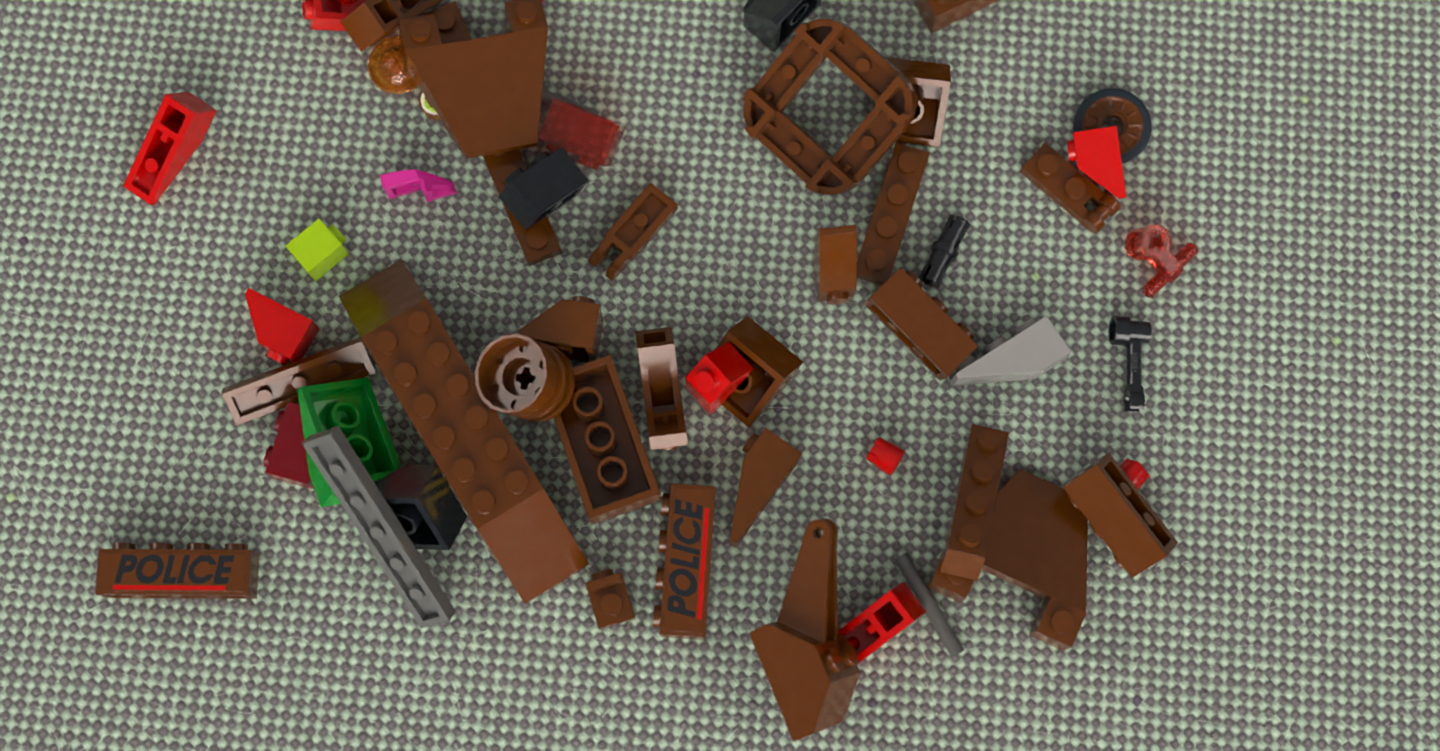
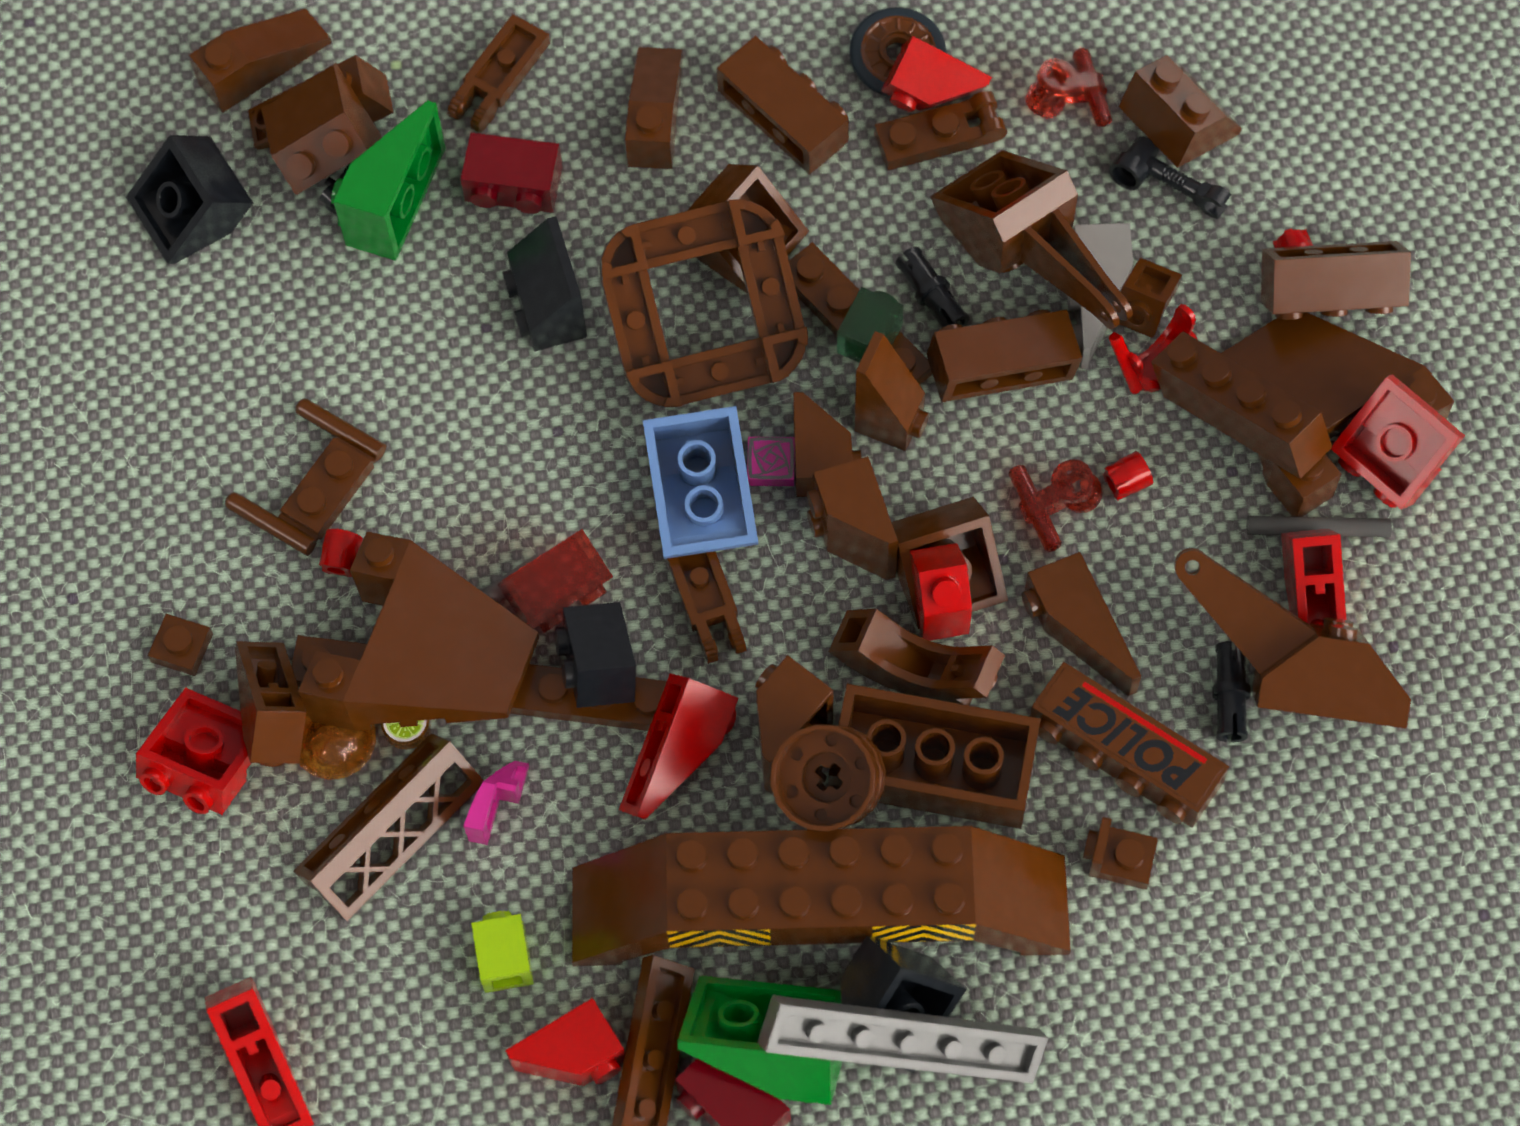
camera: 55 degrees left, 10 degrees down
(363, 120) = (378, 813): none -> reddish brown fence
(519, 274) = (681, 737): none -> red slope
(702, 182) = (700, 482): none -> medium blue slope
(739, 288) = (853, 517): none -> reddish brown slope
(754, 219) = (771, 461): none -> tile
(760, 614) = (1231, 693): none -> black pin
(776, 246) = (818, 442): none -> reddish brown slope
(844, 418) = (1041, 504): none -> clear red piece
(881, 224) = (868, 314): none -> clear green brick
(966, 416) = (1138, 369): none -> red helmet
(1014, 624) = (1396, 443): none -> plate
(1021, 74) = (783, 104): none -> reddish brown brick
(1028, 269) = (1025, 213): none -> reddish brown slope
(1029, 394) = (1149, 294): none -> reddish brown bracket
(1185, 338) = (1176, 112): none -> reddish brown slope

